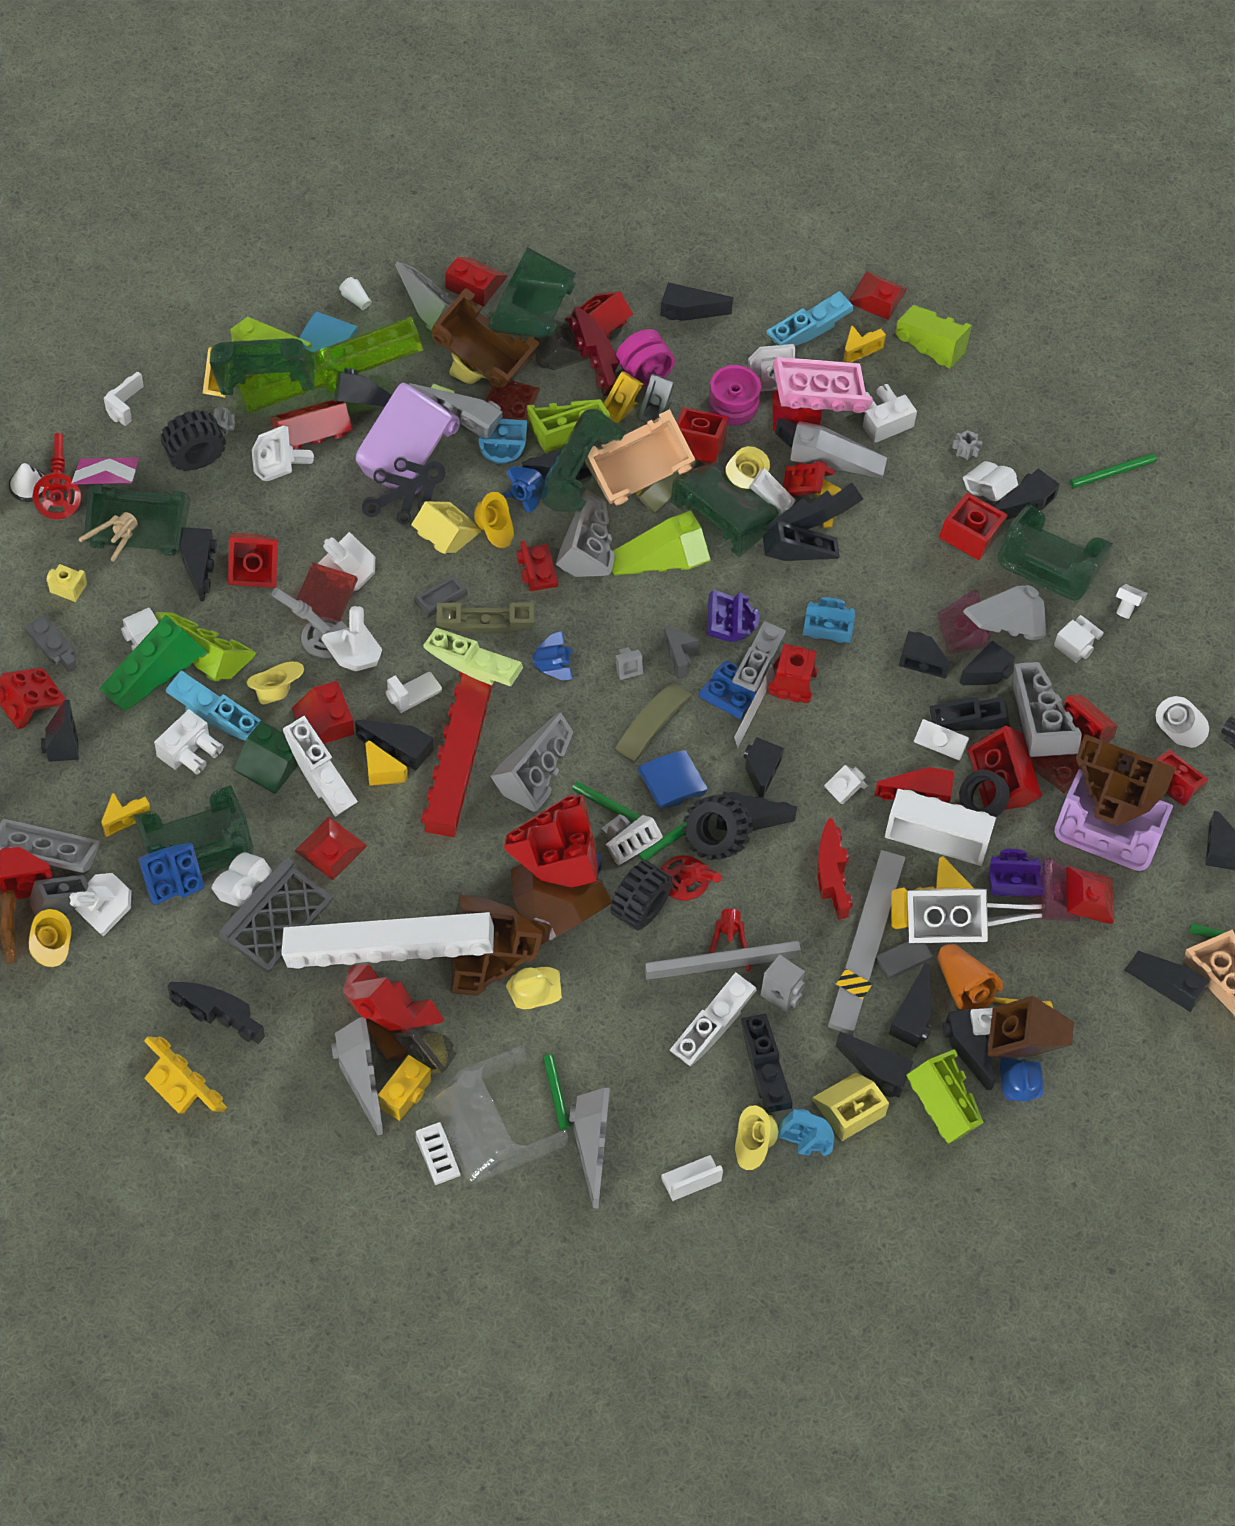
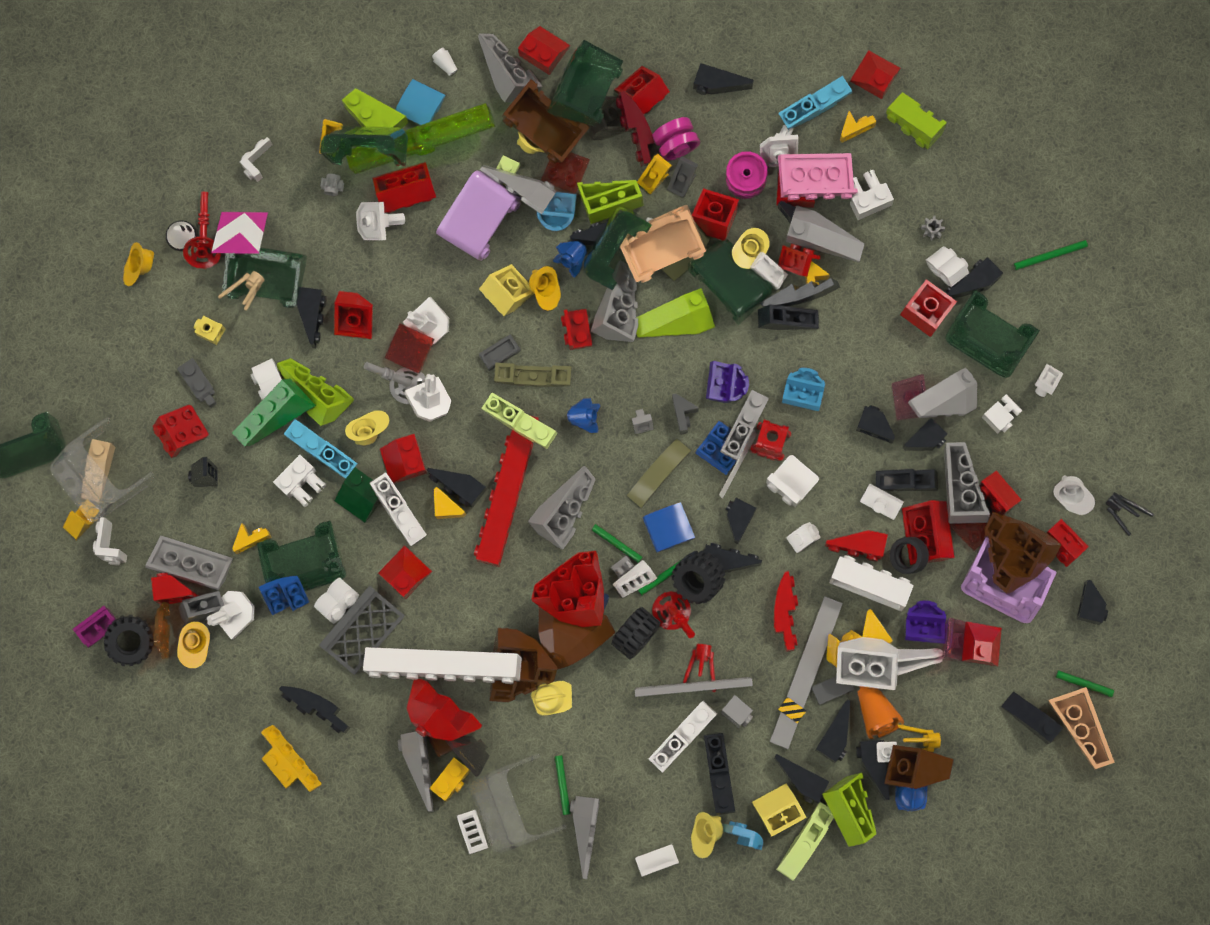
camera: 15 degrees right, 20 degrees up
(193, 440) = (309, 207): black tyre -> none
(359, 389) = (443, 162): black slope -> none
(406, 487) = (475, 257): black plant -> none
(413, 692) = (473, 440): white bracket -> none
(824, 721) = (792, 481): none -> white bracket
(890, 1140) = (806, 841): none -> yellowish green slope

